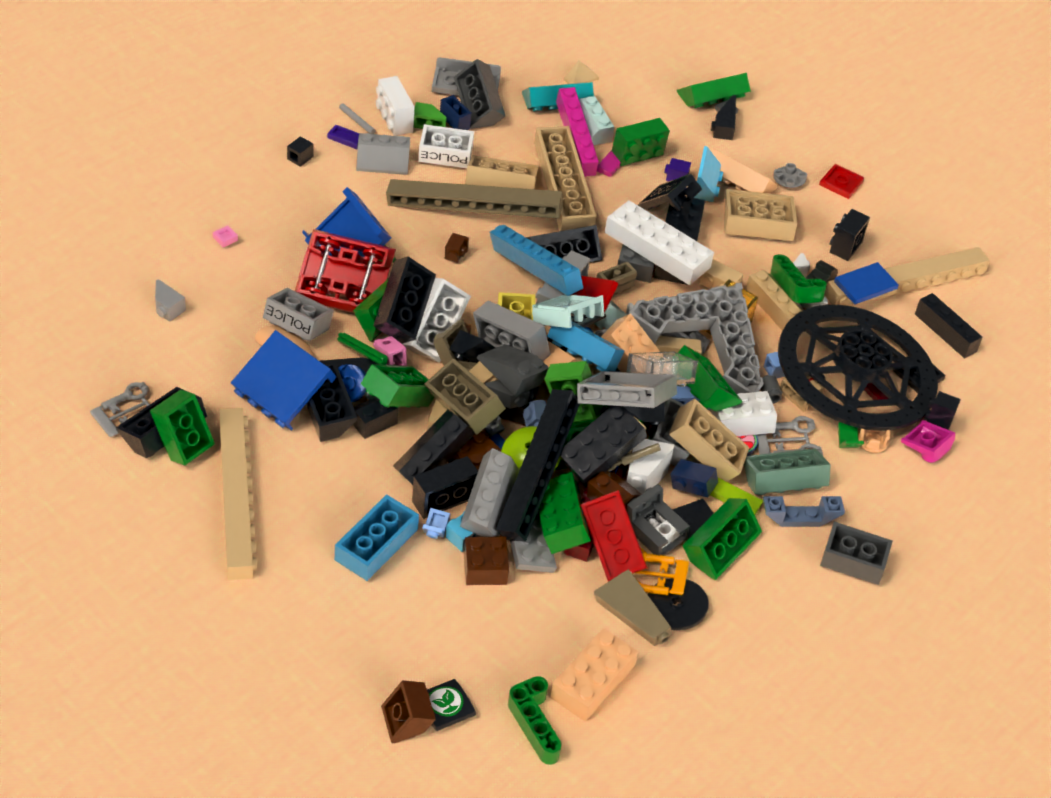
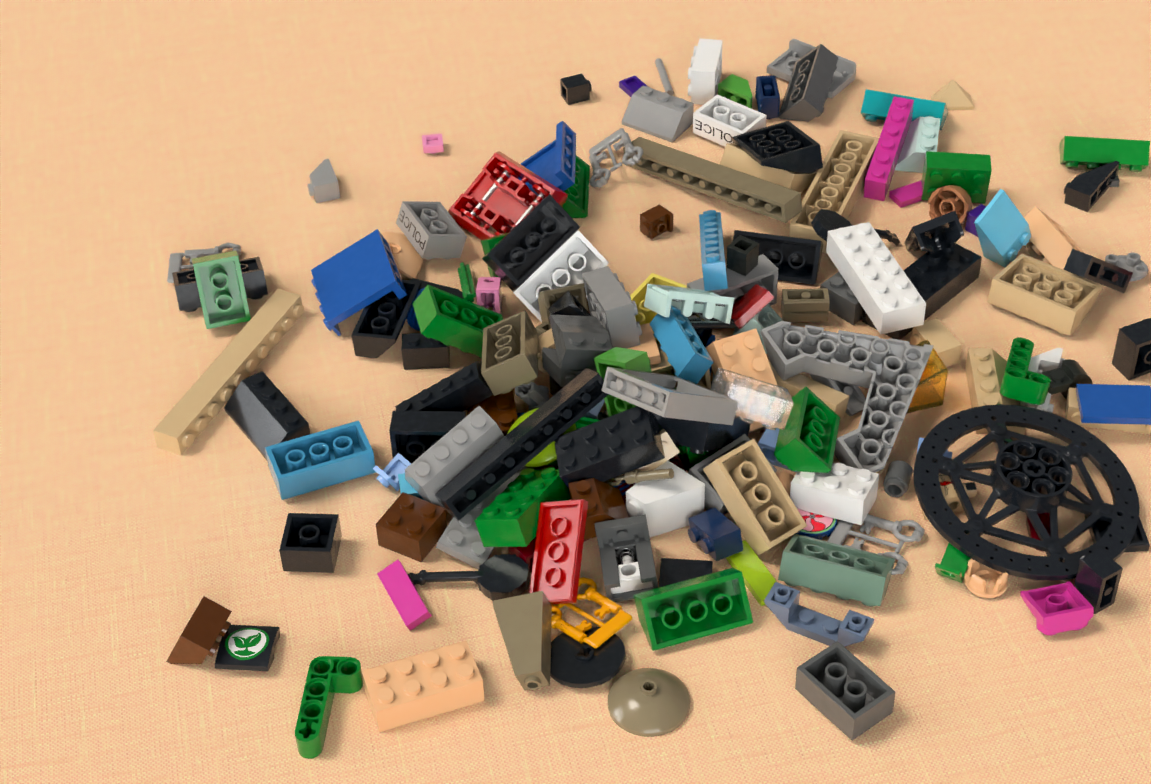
camera: 40 degrees right, 5 degrees down
(301, 519) = (265, 413): none -> black slope
(385, 186) = (630, 151): none -> light grey piece
(427, 604) = (310, 542): none -> black brick
(510, 156) = (782, 148): none -> black slope
(521, 614) = (404, 595): none -> dark pink tile
(569, 253) = (742, 255): none -> pearl dark grey brick
(576, 571) = (497, 577): none -> black piece
(599, 210) = (831, 220): none -> black piece
(651, 166) = (950, 199): none -> nougat cylinder
(739, 624) = (646, 711): none -> dark tan dish
(783, 186) = (1098, 270): none -> black slope

